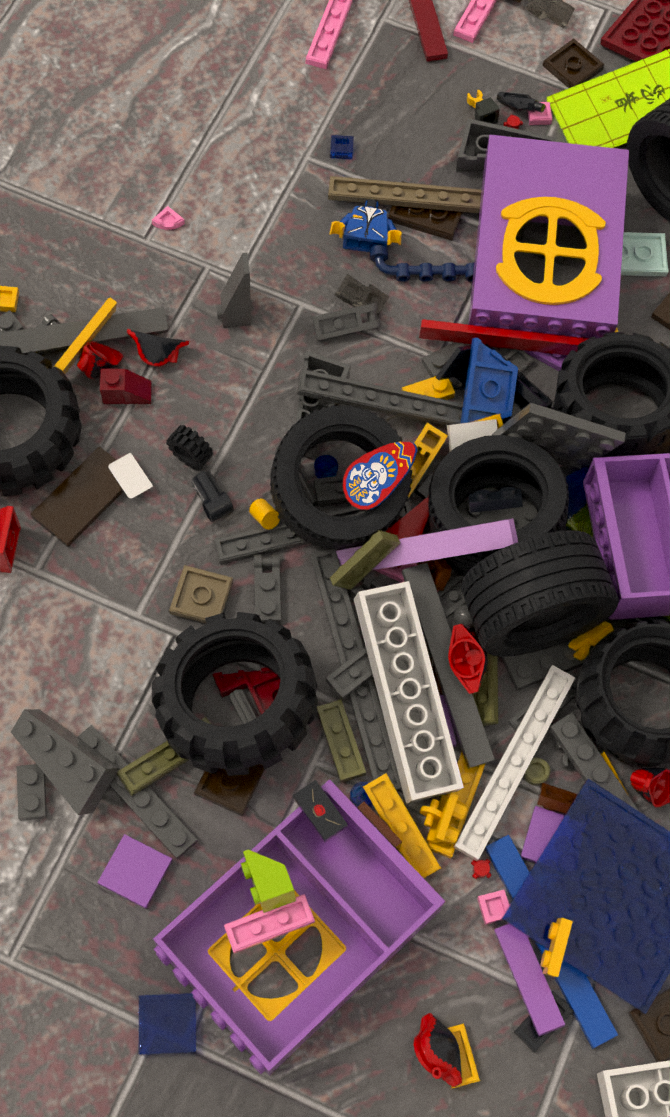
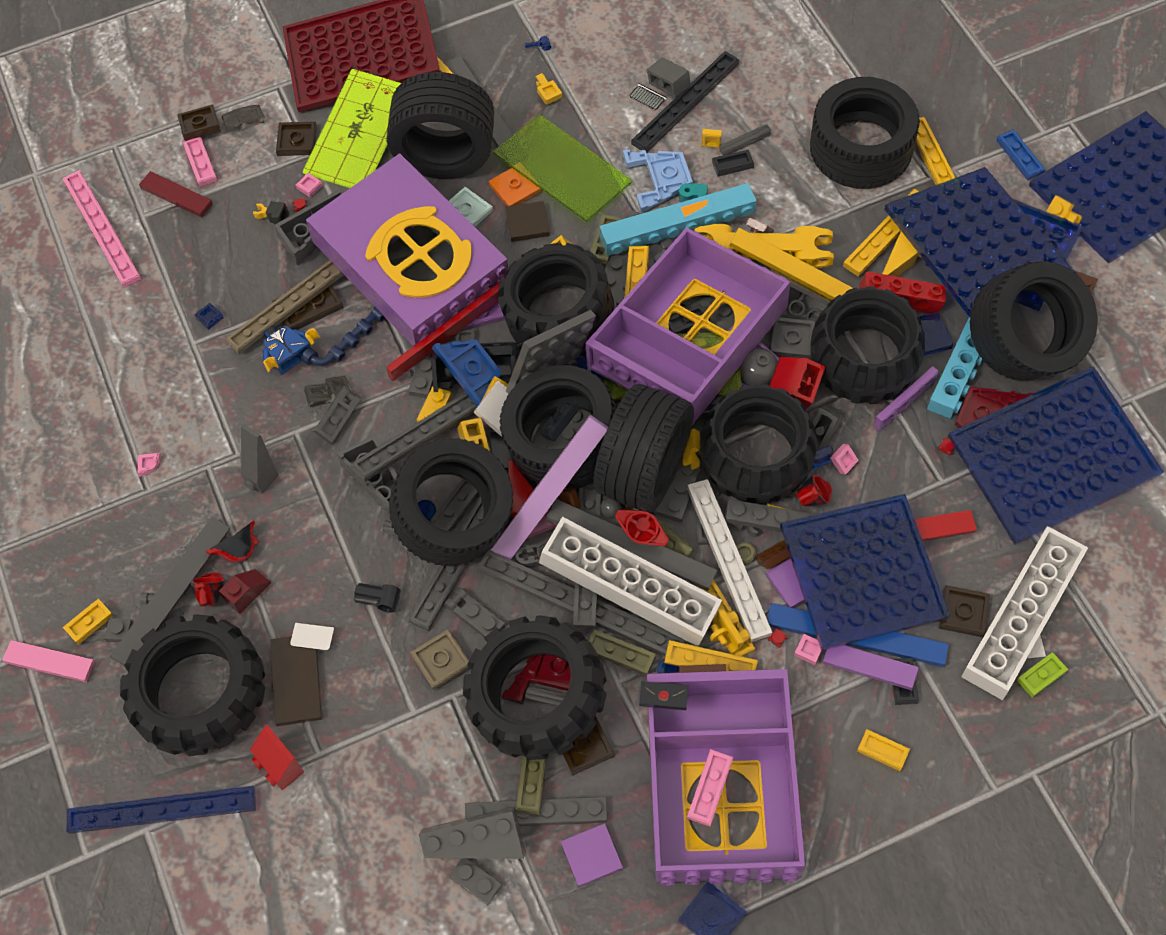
camera: 40 degrees left, 5 degrees down
(86, 335) = (185, 579): yellow tile -> none
(189, 447) = (331, 580): black tyre -> none
(264, 514) = (422, 573): yellow piece -> none
(270, 881) = (683, 761): lime slope -> none
(365, 560) = (519, 534): olive plate -> none
(378, 474) = (478, 472): shield -> none
(438, 1050) = (872, 756): hat -> none
(520, 101) = (290, 188): black piece -> none
(559, 936) = (873, 636): yellow plate -> none

